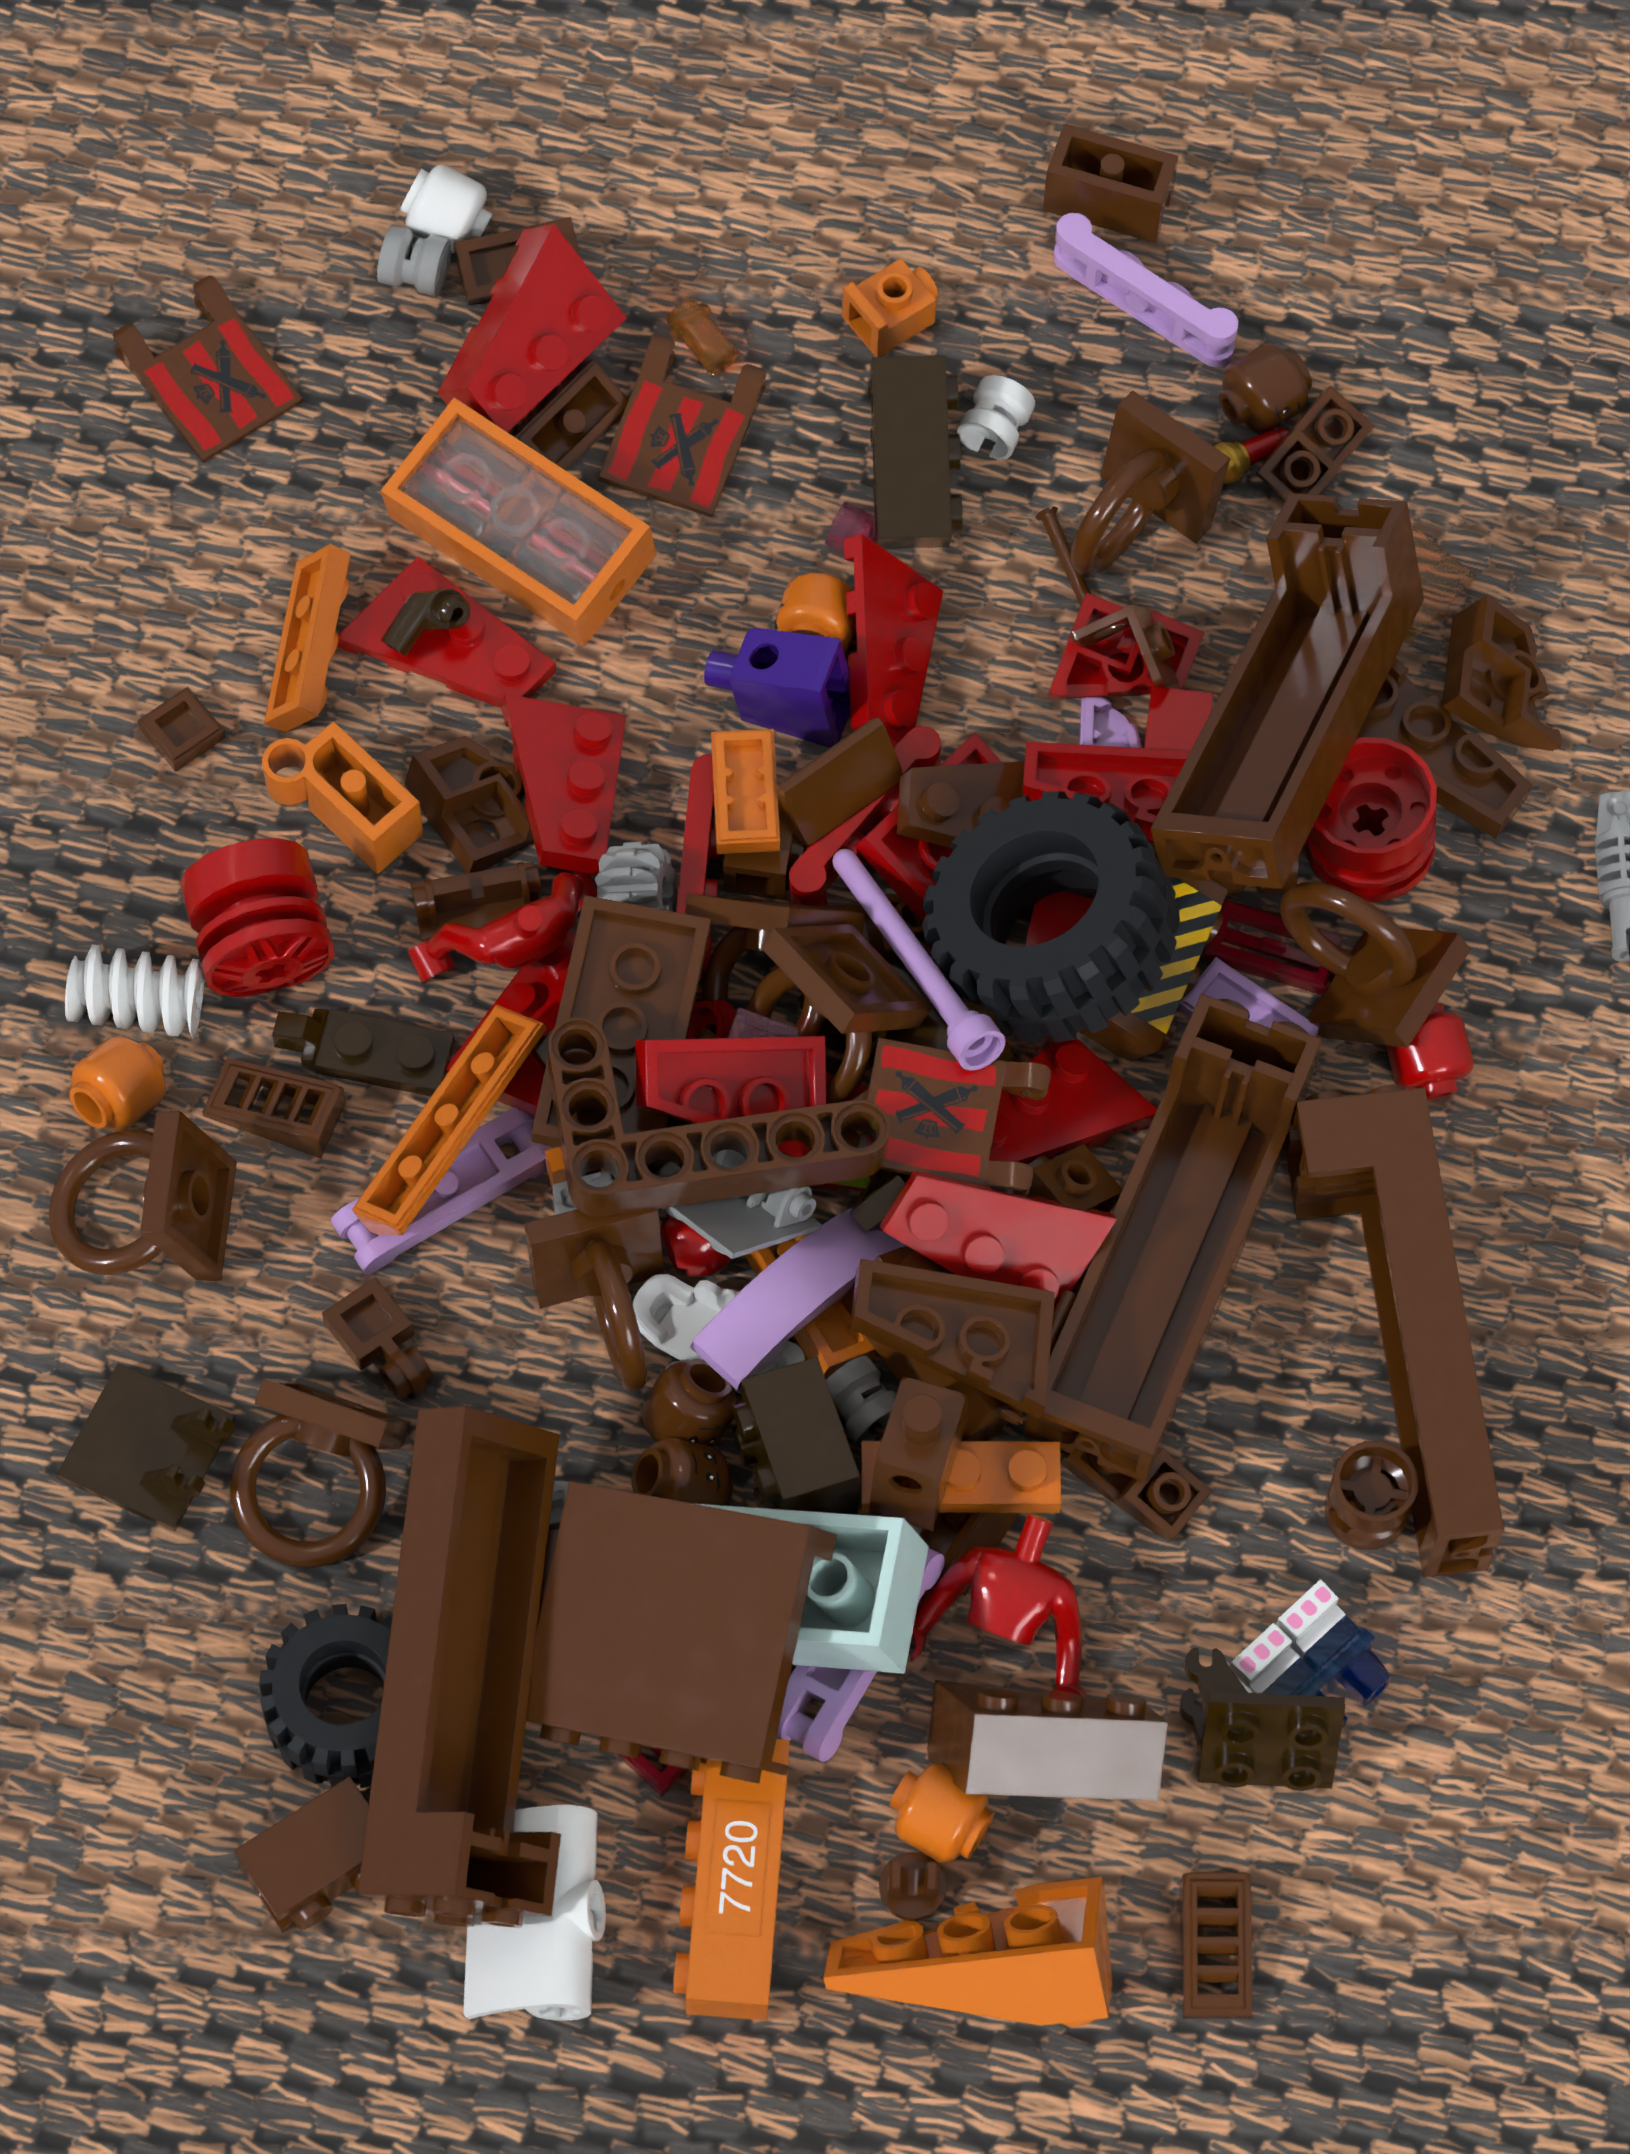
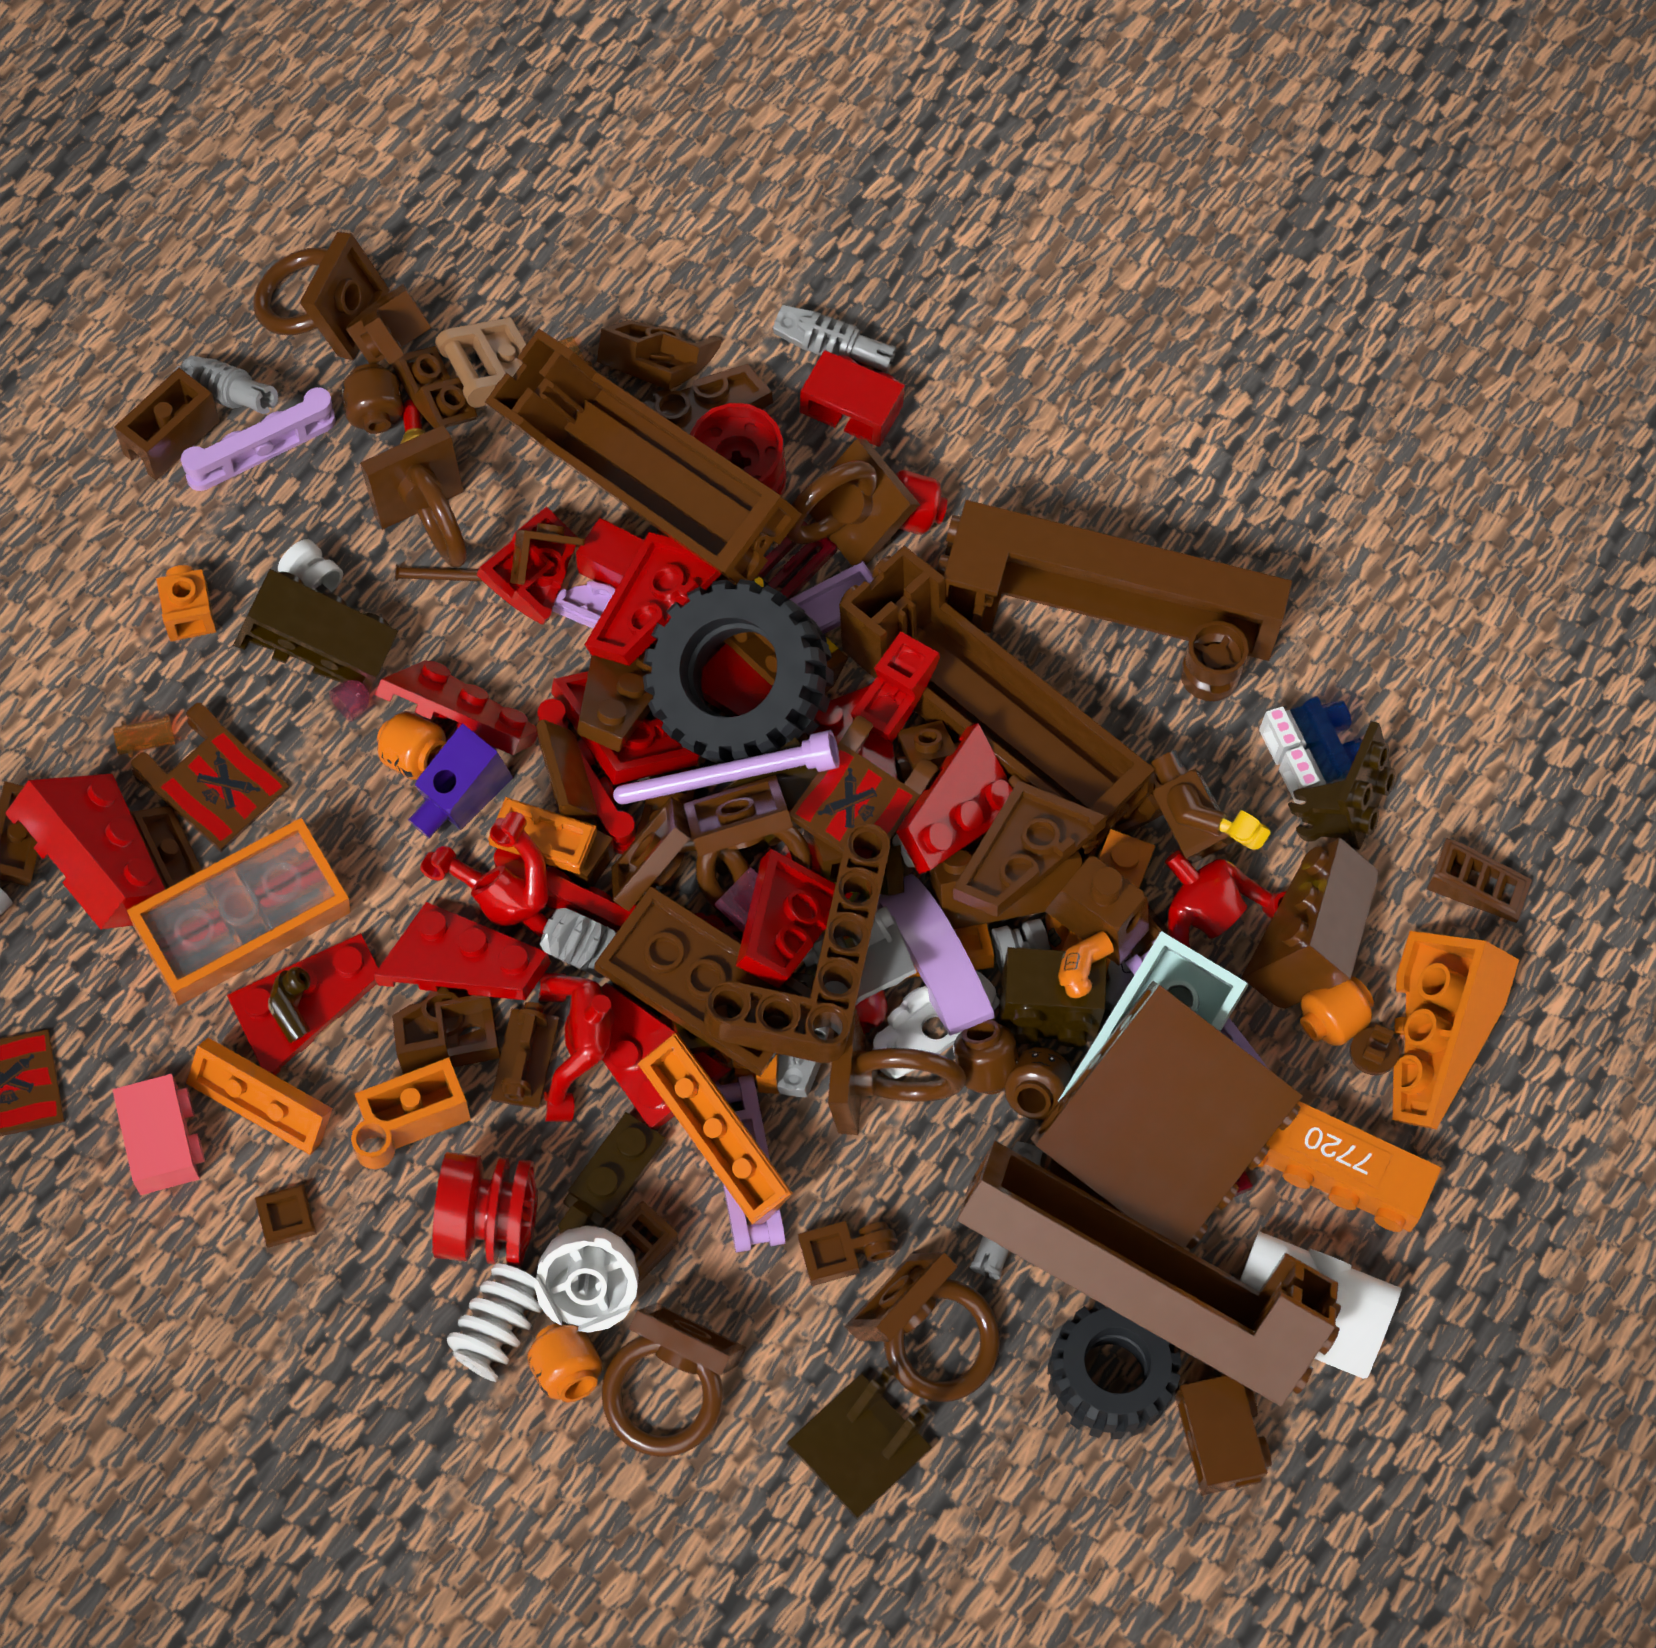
camera: 70 degrees left, 0 degrees up
(212, 1053) = (587, 1279): none -> white cylinder
(218, 555) = (157, 1133): none -> coral brick
(658, 779) = (500, 893): none -> red piece
(828, 1438) = (1077, 963): none -> orange arm
(1118, 1538) = (1195, 814): none -> reddish brown torso
(1123, 1116) = (898, 685): none -> red slope
(1195, 221) = (230, 384): none -> light grey hinge
(1366, 360) = (388, 326): none -> reddish brown brick
(1375, 288) = (336, 295): none -> reddish brown tile
(1411, 481) = (497, 347): none -> medium nougat plate
(1546, 923) = (845, 388): none -> red piece

